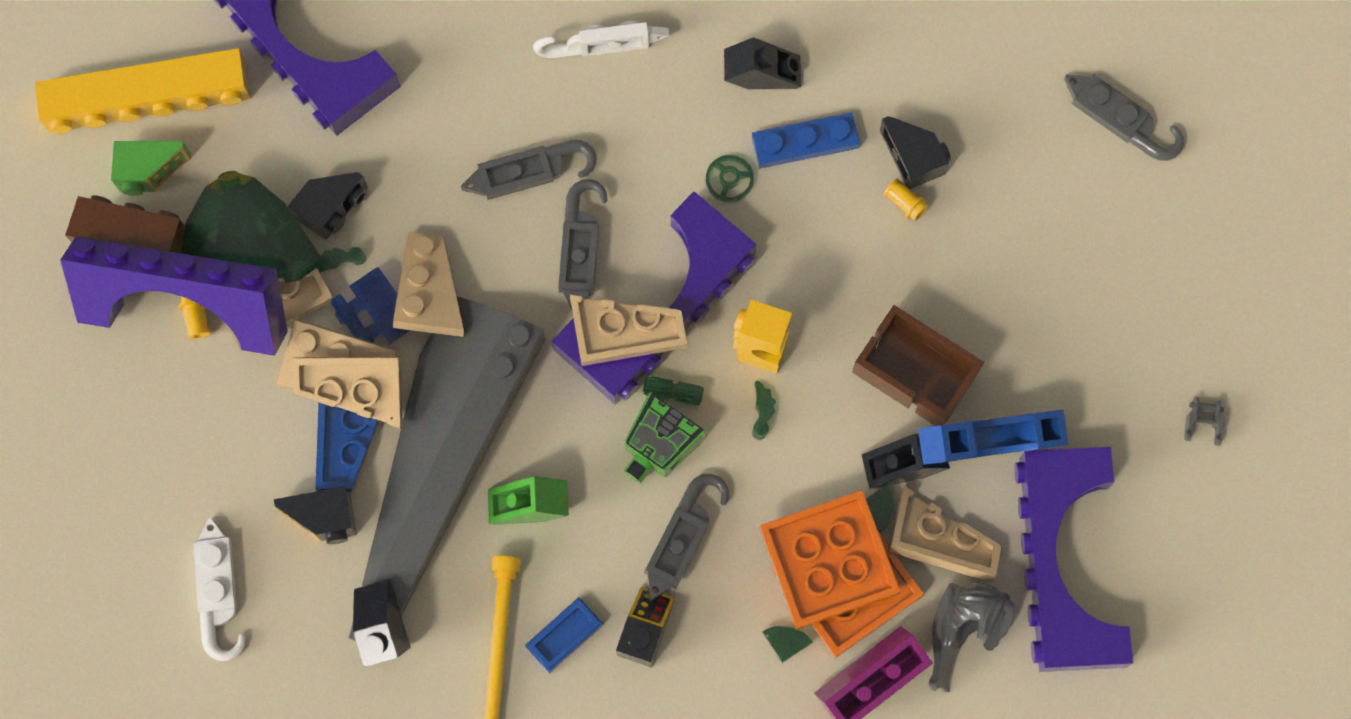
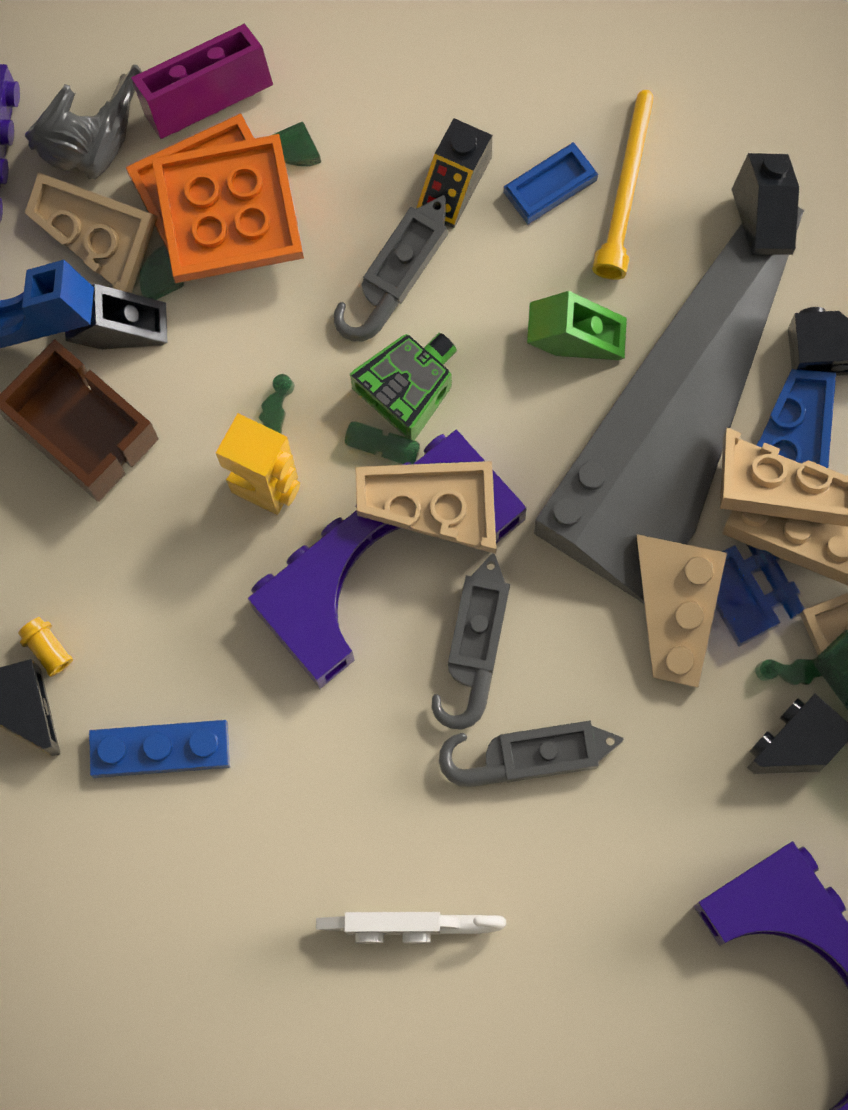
camera: 170 degrees left, 0 degrees up
(728, 185) = (273, 699): clear green piece -> none
(761, 66) = (198, 854): black slope -> none

